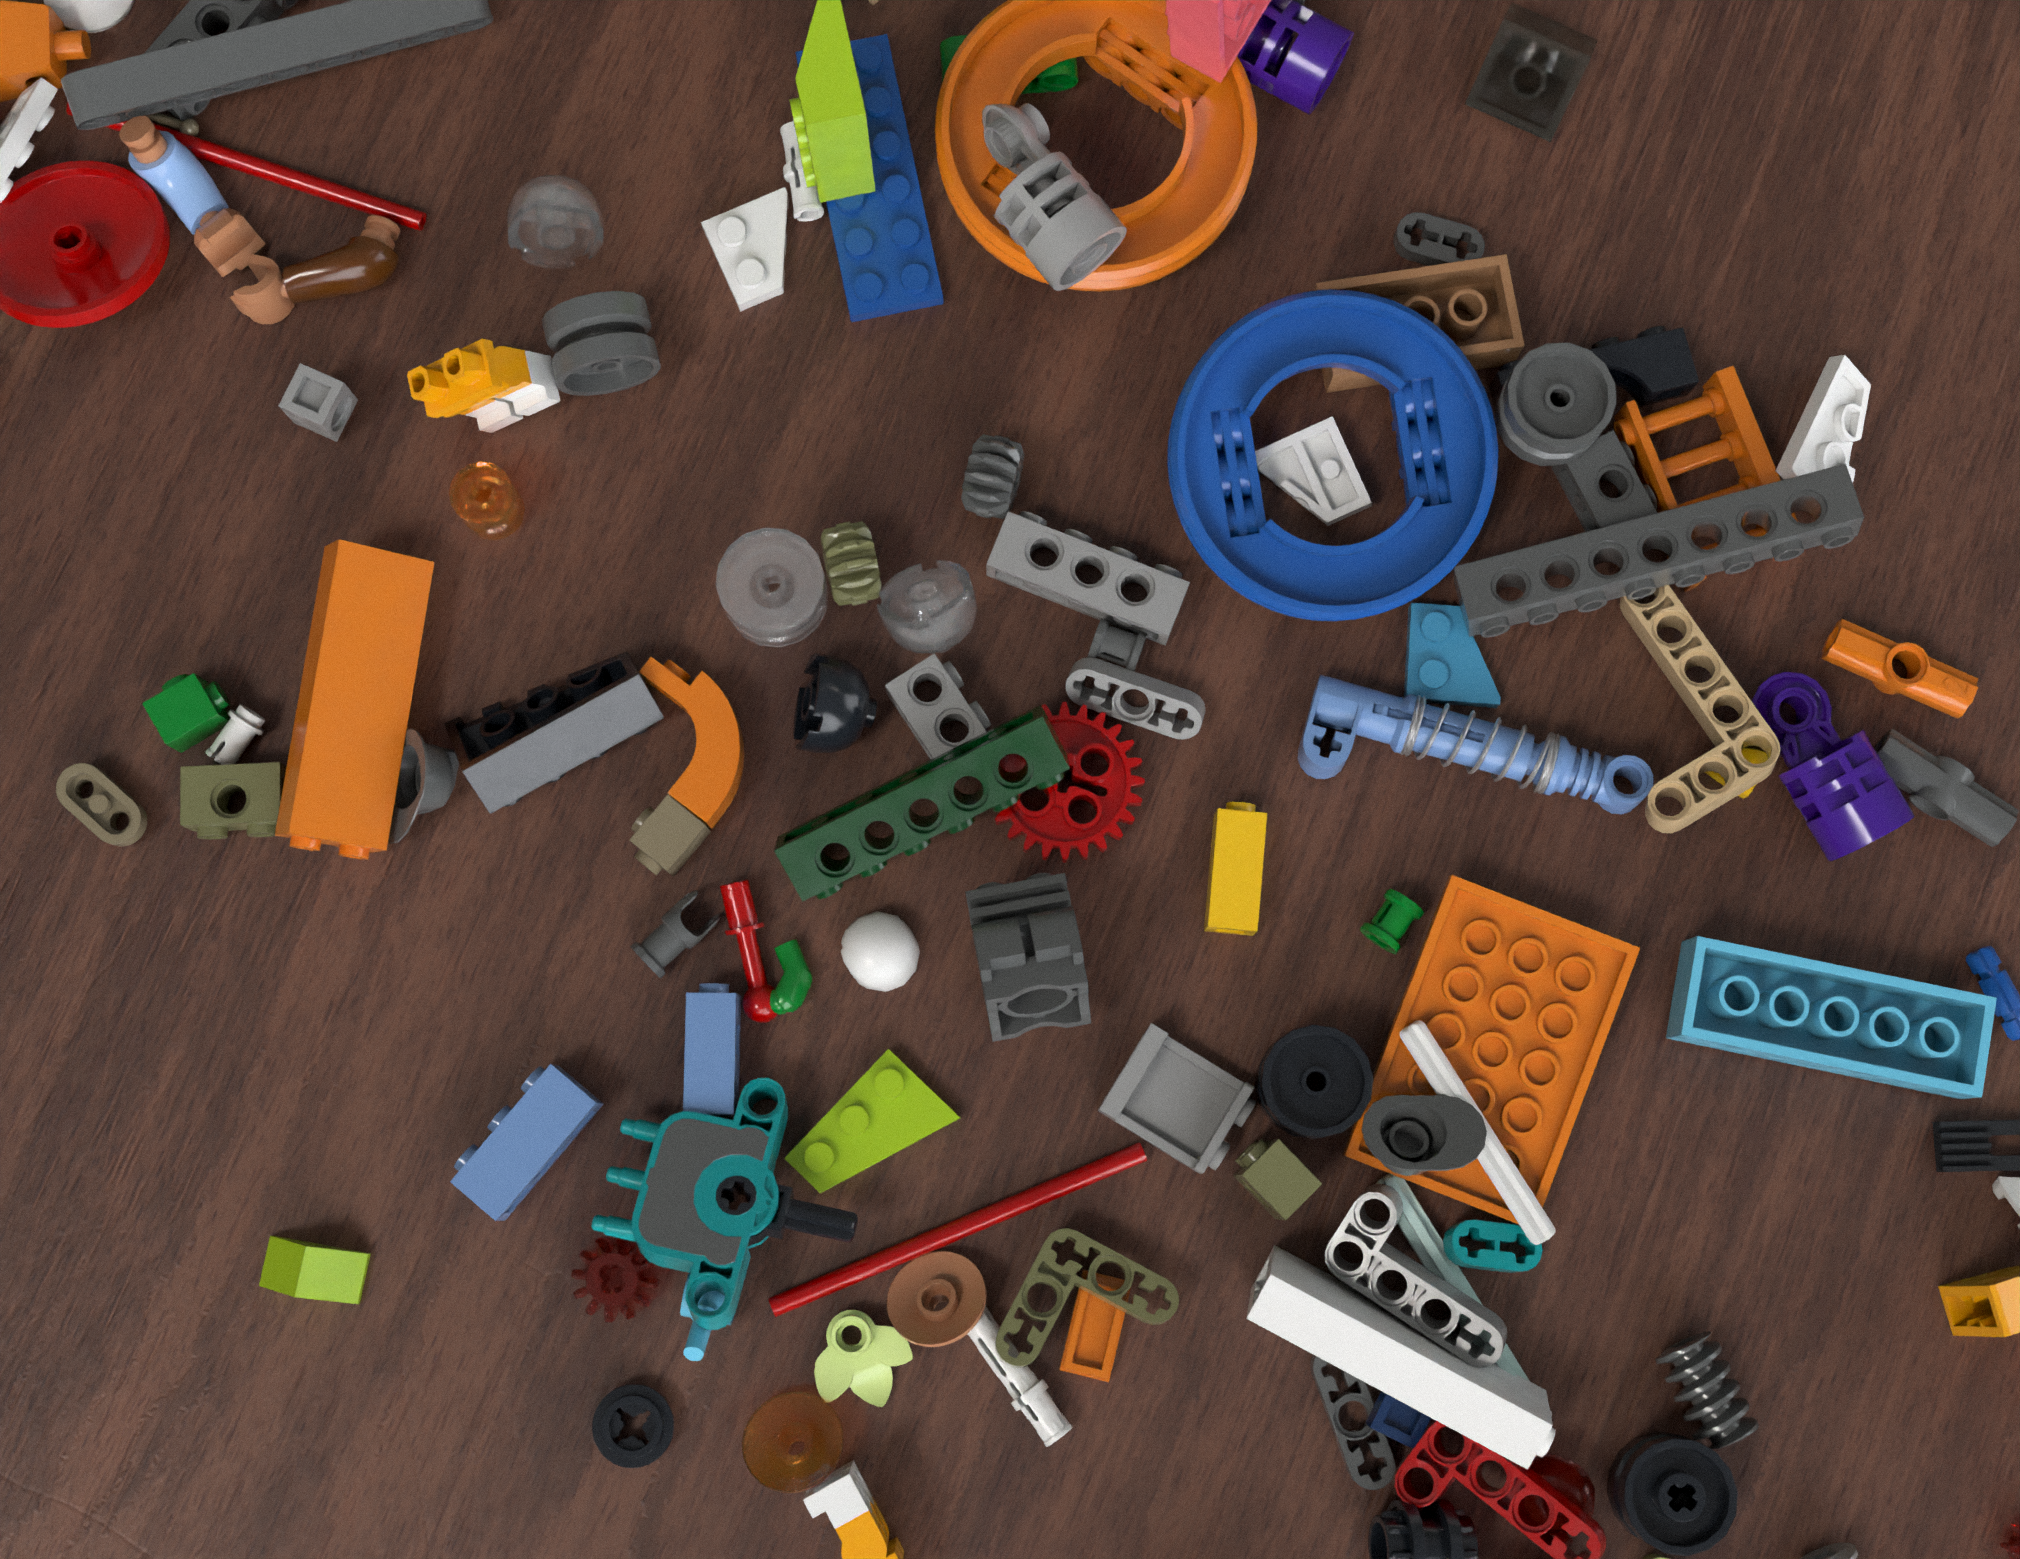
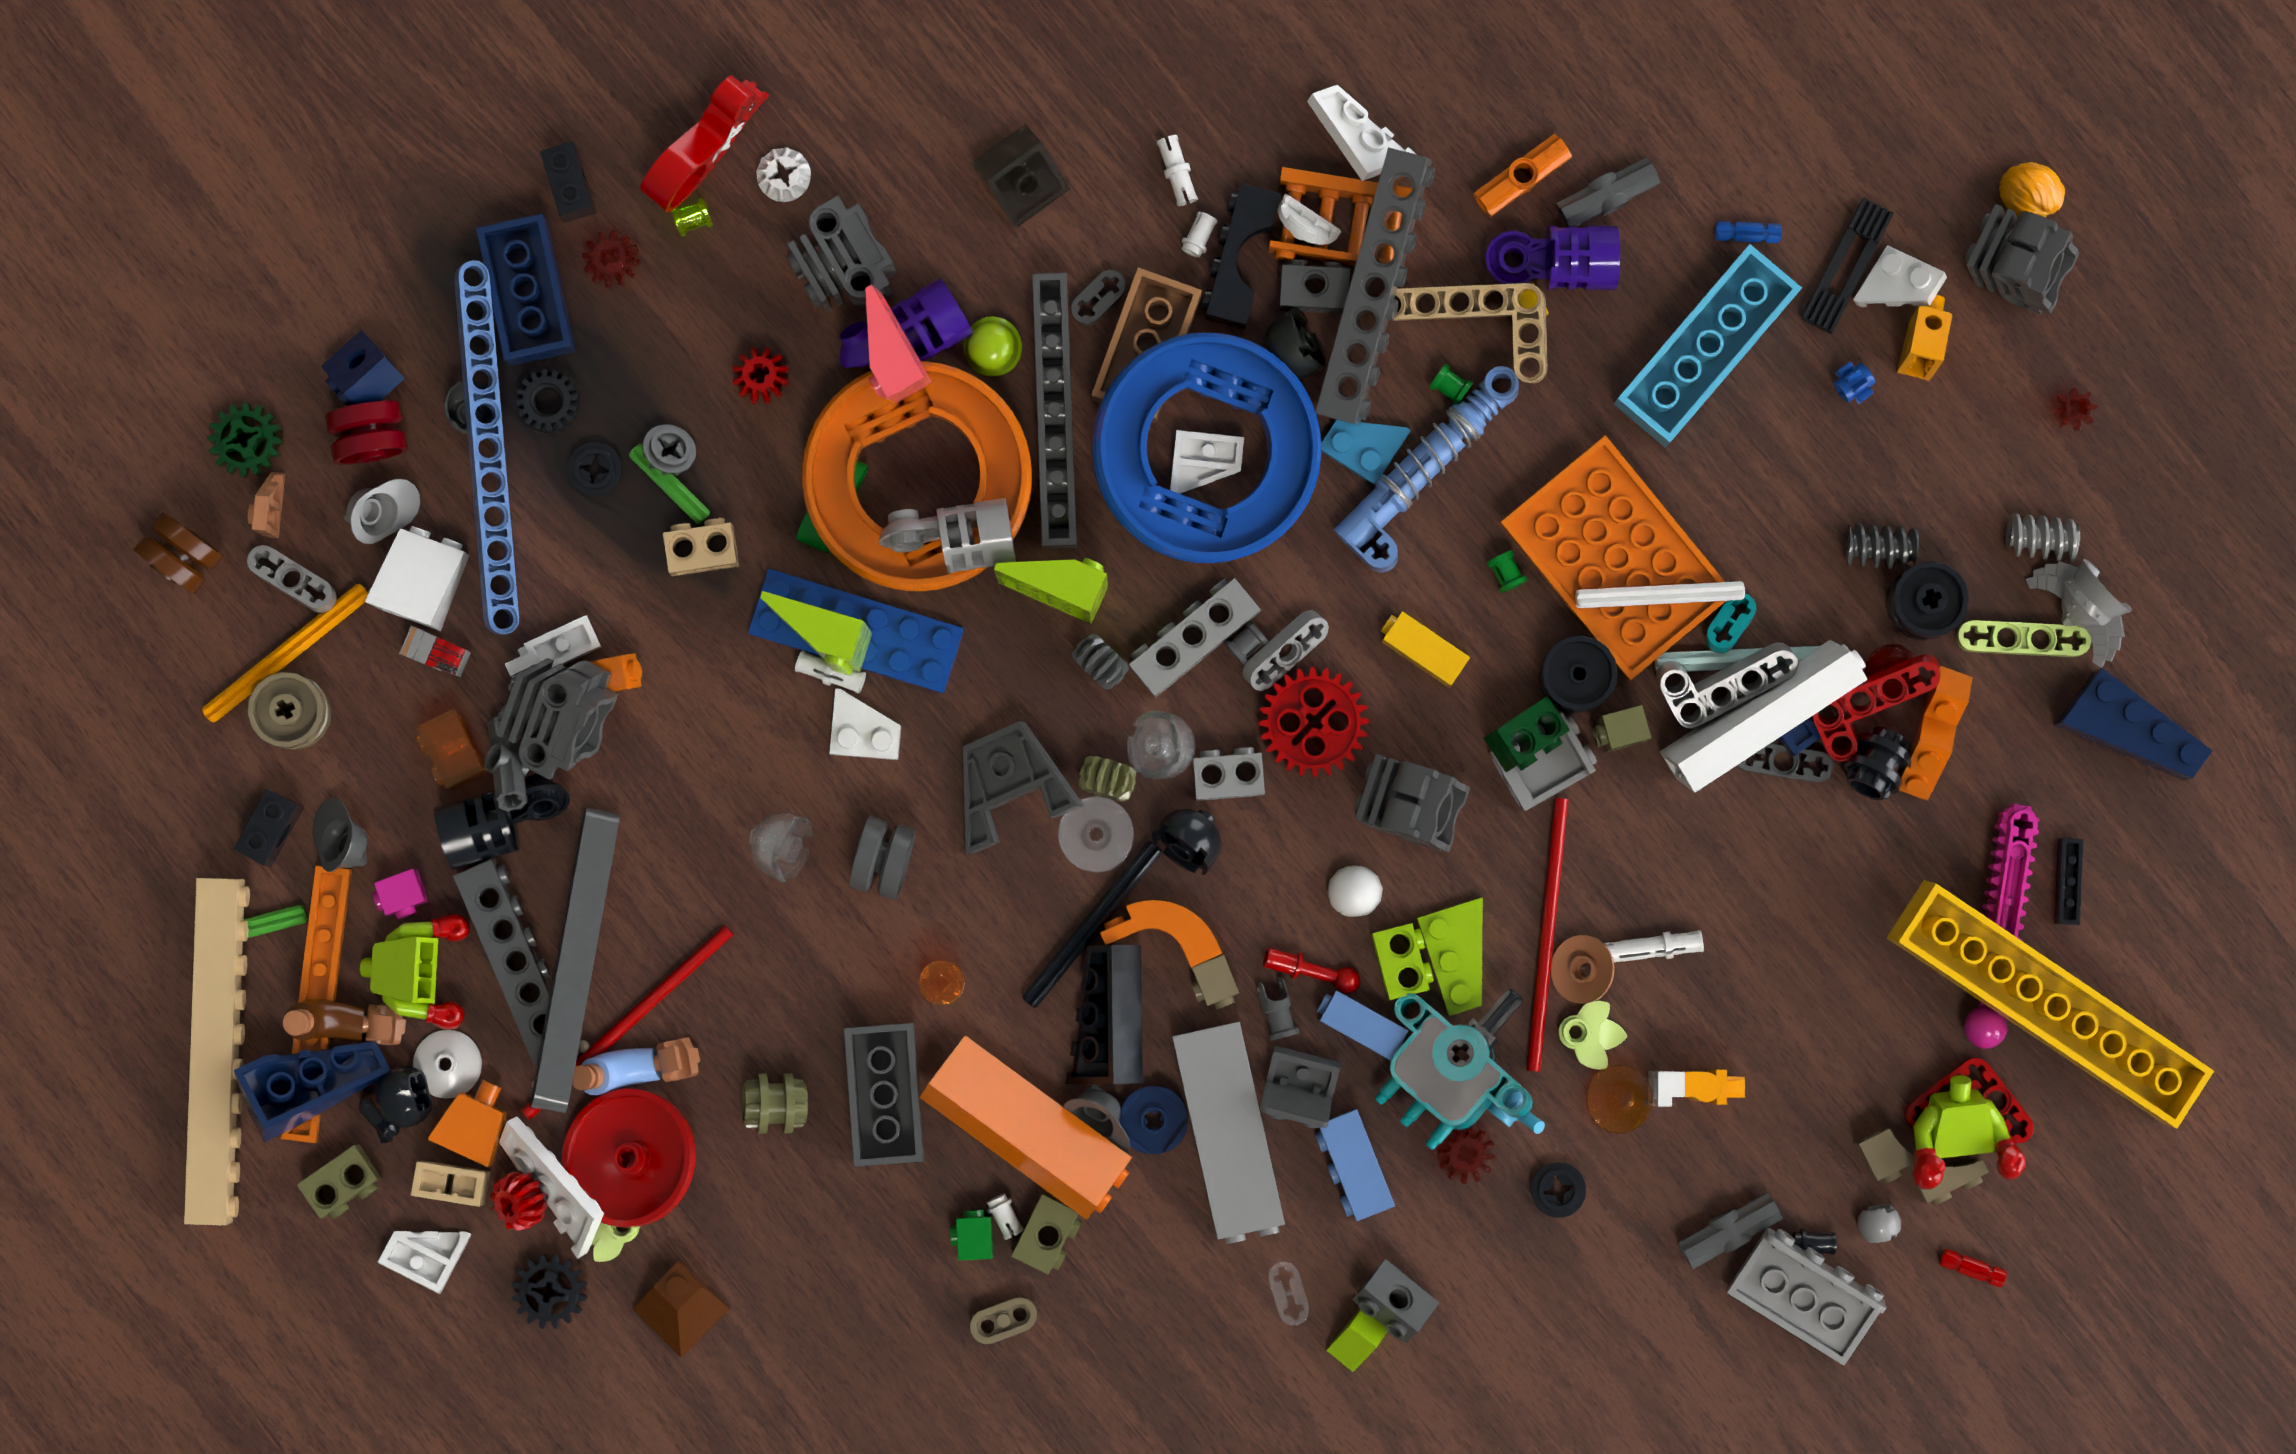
camera: 60 degrees left, 5 degrees up
(230, 381) = (774, 1103): none -> olive piece
(310, 1138) = (1296, 1290): none -> clear beam
(318, 402) = (821, 1055): light grey brick -> none
(319, 491) = (884, 1094): none -> dark grey brick
(347, 270) = (742, 988): piece -> none
(384, 1316) = (1413, 1302): none -> dark grey brick
(437, 832) = (1173, 1117): none -> dark blue plate
(484, 957) = (1229, 1132): none -> light grey brick
(486, 384) = (874, 943): light orange hips -> none
(585, 1015) = (1300, 1087): none -> dark grey bracket
(661, 647) = (1092, 924): none -> black axle
(789, 431) = (1005, 769): none -> dark grey wing
(795, 981) = (1345, 952): green arm -> none
(811, 1047) = (1392, 963): none -> lime brick
(847, 824) = (1273, 801): dark green brick -> none
(1061, 361) = (1062, 584): none -> lime slope
(1062, 1281) = (1612, 886): olive beam -> none
(1093, 1332) = (1648, 884): orange tile -> none
(1201, 1051) = (1526, 733): none -> dark green brick
(1269, 258) = (1054, 411): none -> dark grey brick
(1306, 153) = (993, 346): none -> lime helmet
(1423, 1133) = (1644, 627): dark grey piece -> none
(1522, 500) = (1295, 345): none -> pearl dark grey cylinder
(1555, 404) = (1246, 315): dark grey wheel -> none
(1587, 721) = (1451, 384): none -> green bush
(1589, 318) = (1199, 235): none -> white pin
(1649, 252) = (1177, 170): none -> white pin
(1681, 430) = (1305, 223): none -> white plate
(1895, 1236) = (1854, 382): none -> blue gear

